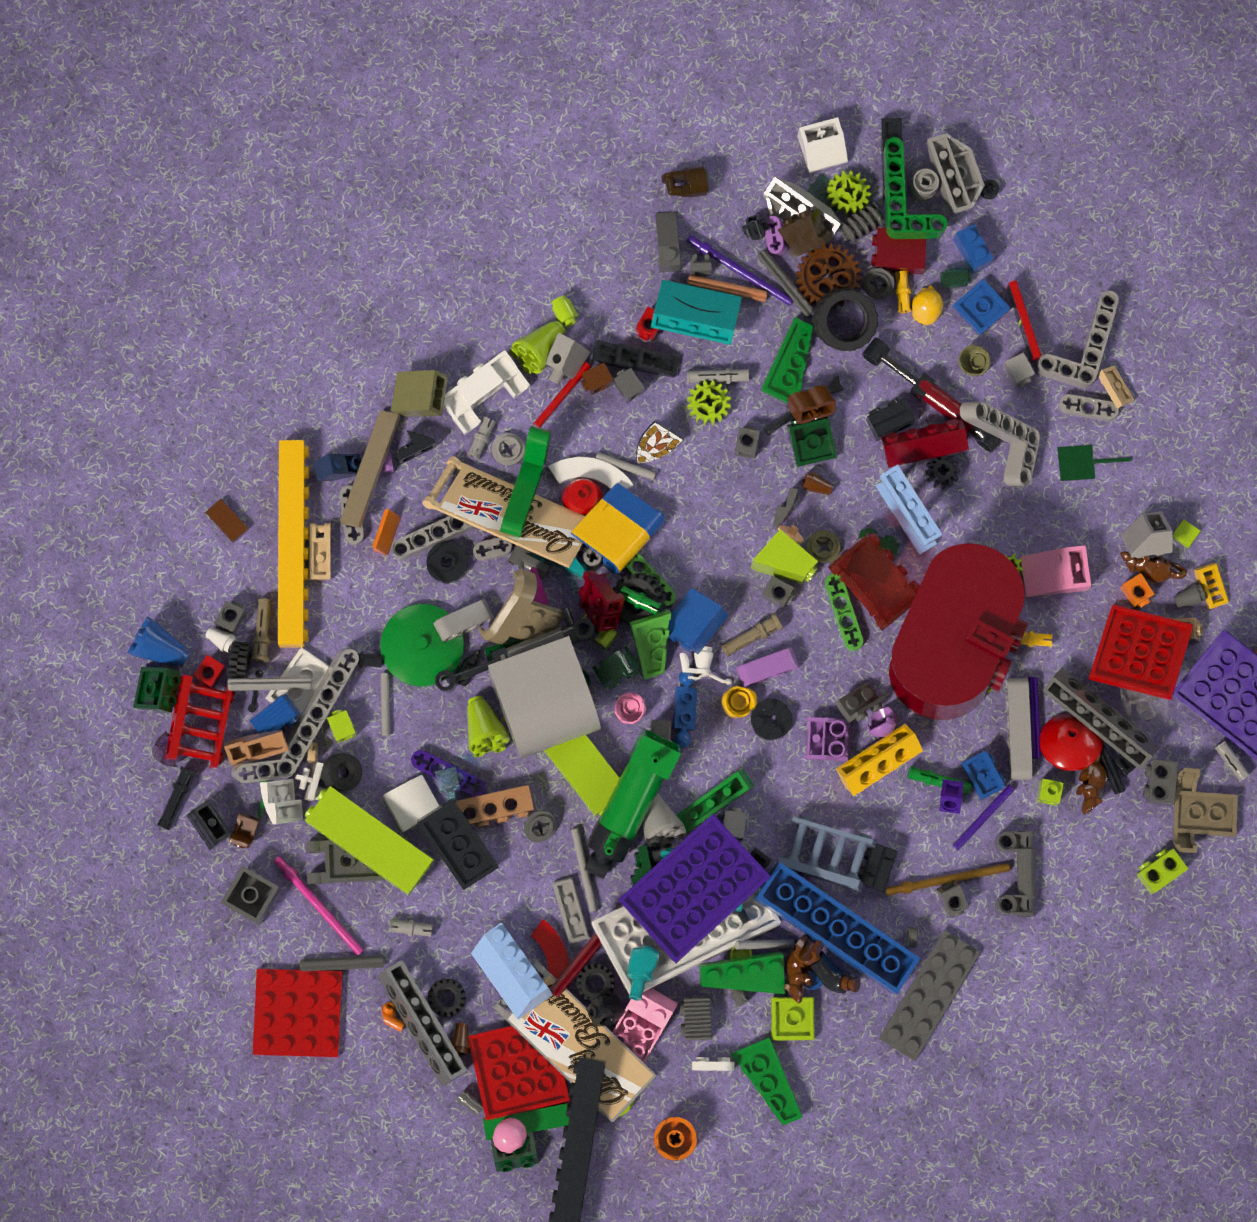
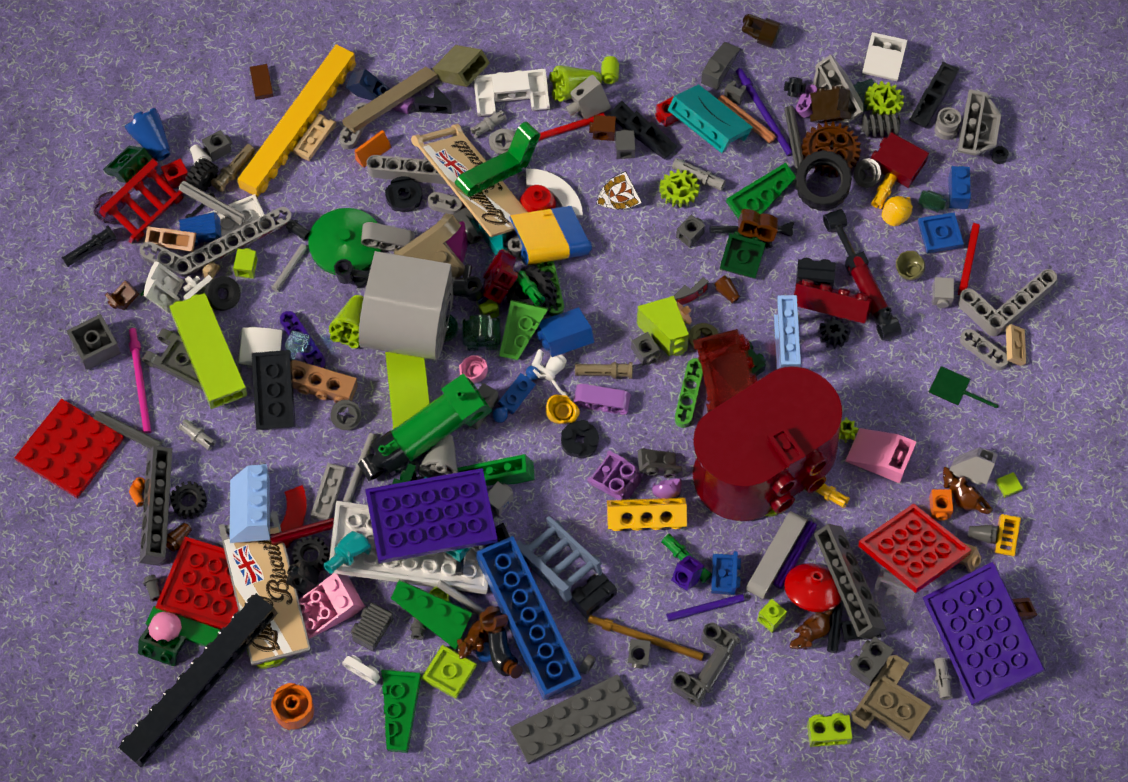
camera: 35 degrees right, 15 degrees down
(209, 825) = (98, 275): black brick -> none
(626, 466) = (583, 197): light grey bar -> none
(899, 198) = (918, 116): green beam -> none
(1022, 439) = (914, 338): light grey beam -> none

